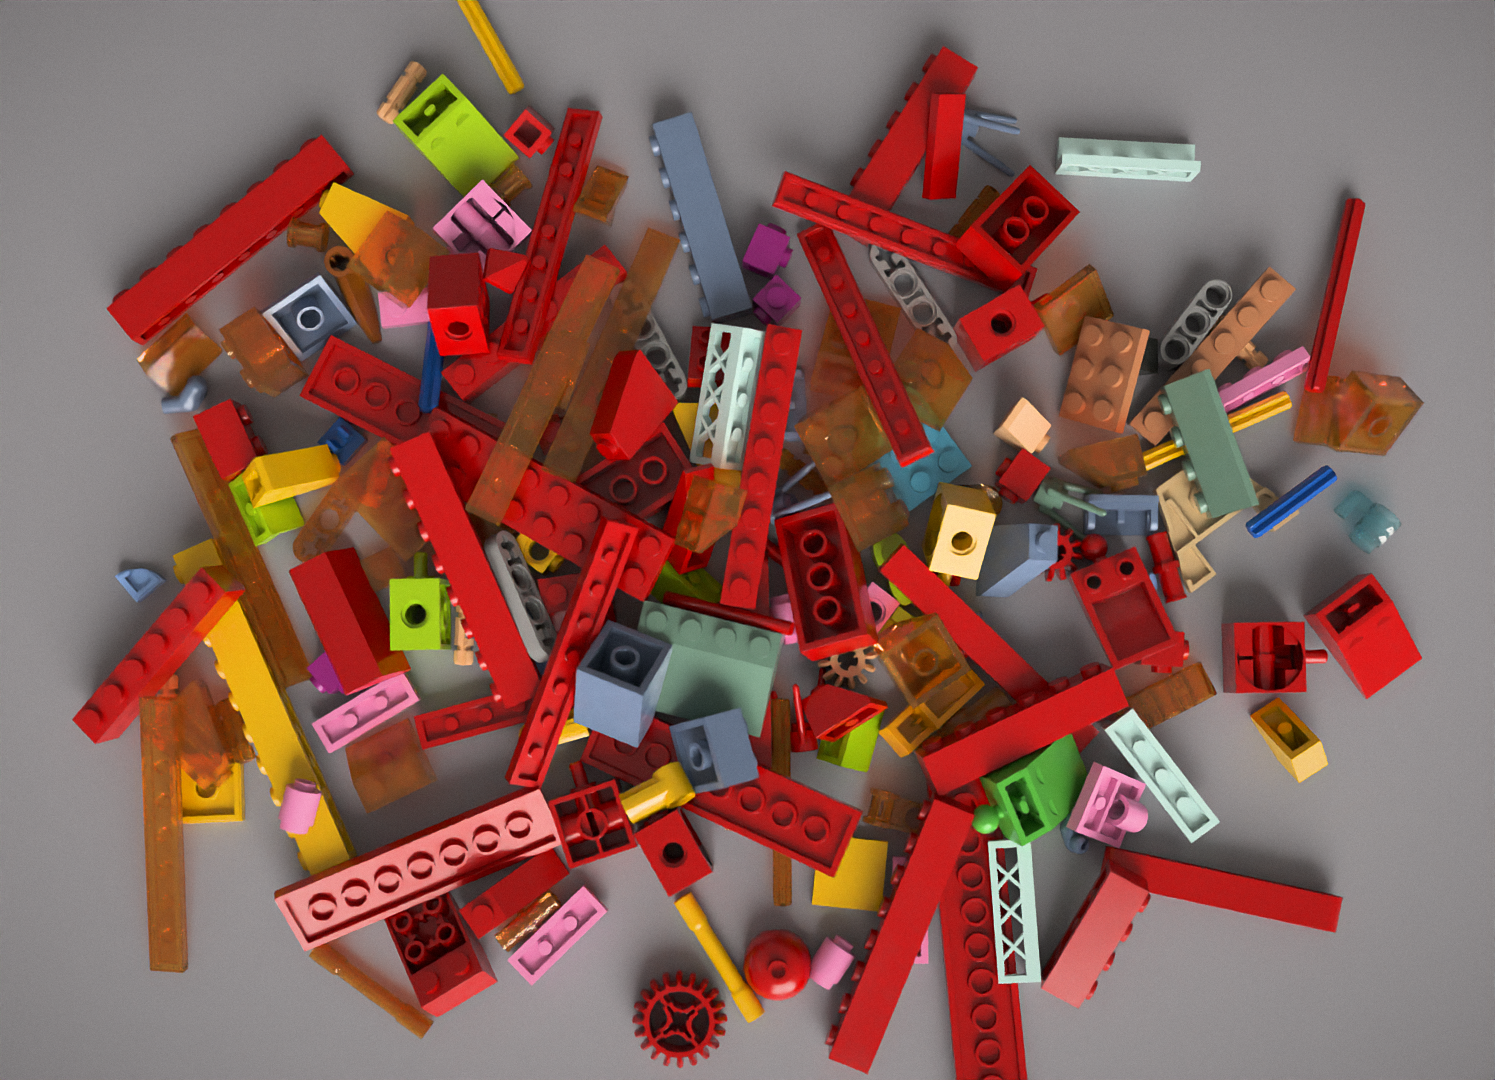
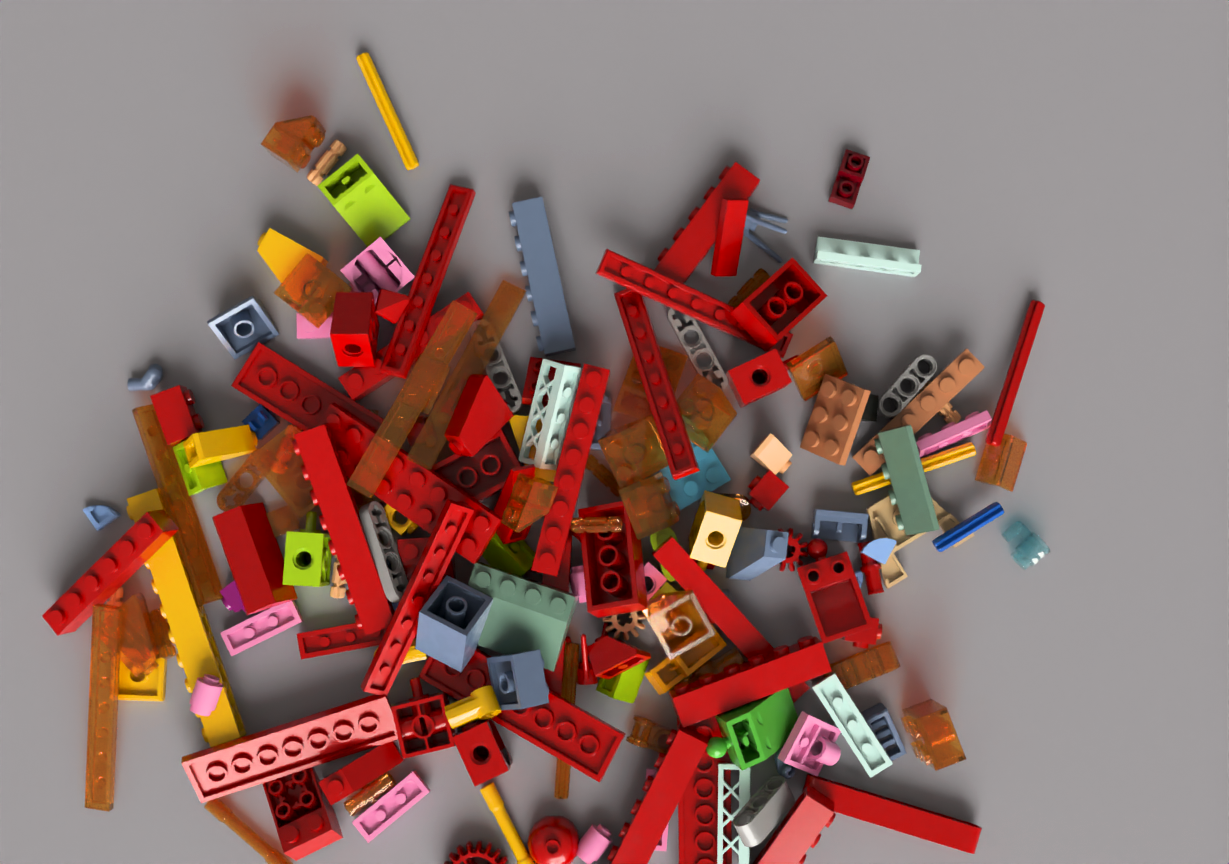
camera: 10 degrees right, 0 degrees up
(179, 355) = (143, 347): clear orange panel -> none
(228, 241) = (188, 265): red brick -> none
(262, 353) = (205, 352): clear orange brick -> none
(307, 234) = (247, 265): clear orange bush -> none
(355, 292) = (279, 311): dark orange piece -> none
(356, 64) = (294, 141): none -> clear orange slope
(389, 766) = (275, 669): clear orange slope -> none
(431, 374) = (330, 380): blue axle -> none
(511, 184) = (401, 240): clear orange bush -> none
(530, 133) = (420, 202): red brick -> none
(601, 195) = (469, 253): clear orange slope -> none
(729, 613) = (538, 577): red bar -> none
(768, 251) = (591, 305): magenta brick -> none
(775, 302) = (593, 345): magenta brick -> none
(787, 505) = (590, 498): sand blue plant -> none
(801, 537) = (596, 524): none -> clear orange axle
(858, 880) = (619, 783): yellow tile -> none
(1053, 494) = (790, 506): sand green plant -> none
(1054, 899) = (763, 811): none -> light grey beam
(1093, 59) = (849, 179): none -> dark red slope
(1108, 463) = (833, 486): clear orange slope -> none
(1176, 541) = (879, 549): none -> light blue tile
(1195, 761) = (878, 716): none -> sand blue slope
(1266, 657) = (940, 642): red piece -> none
(1270, 778) = (932, 734): none -> clear orange brick
(1290, 739) = (949, 695): yellow slope -> none
(1364, 633) = (1015, 631): red slope -> none
(1371, 412) = (1034, 464): clear orange slope -> none

